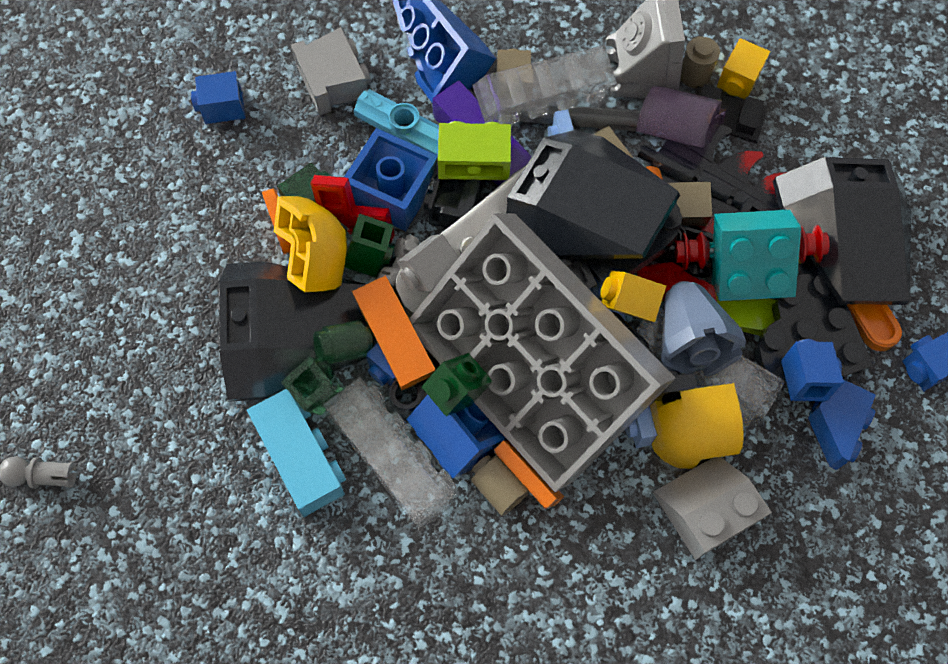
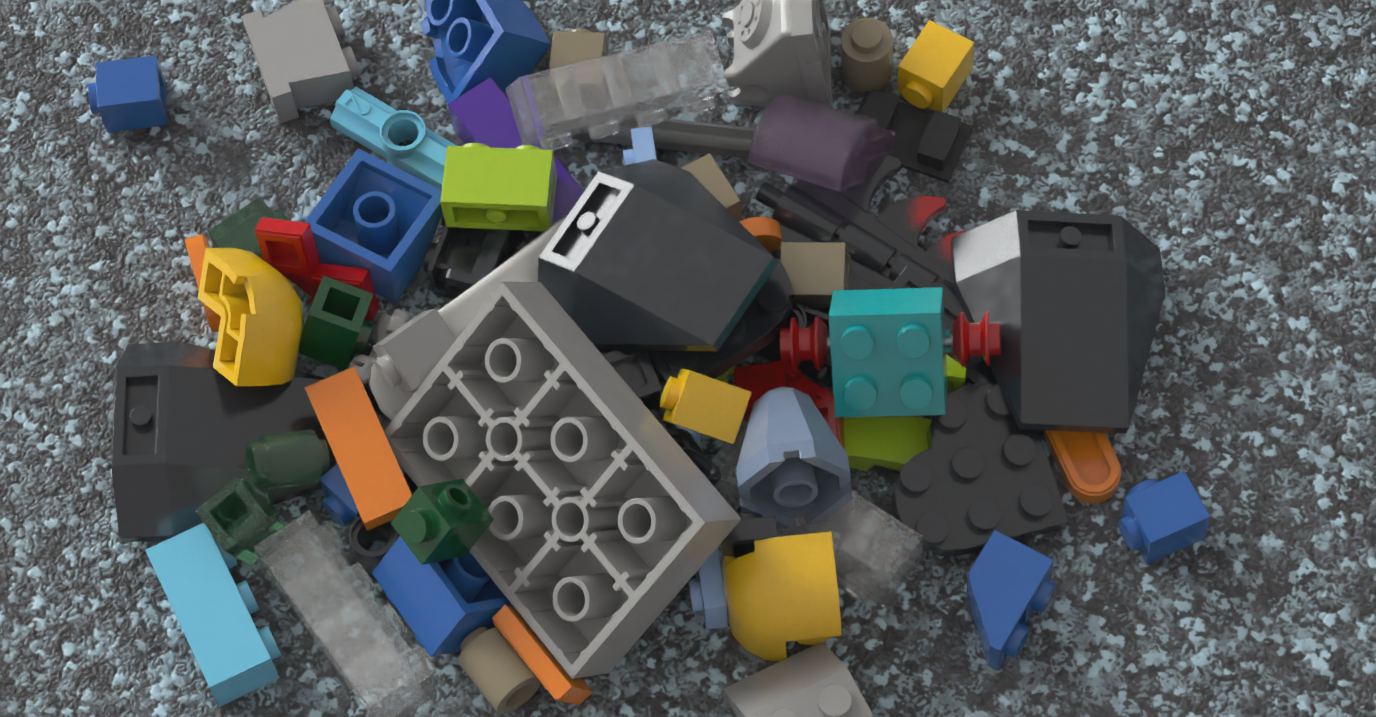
camera: 10 degrees right, 5 degrees down
(812, 371) = (956, 521): blue brick -> none

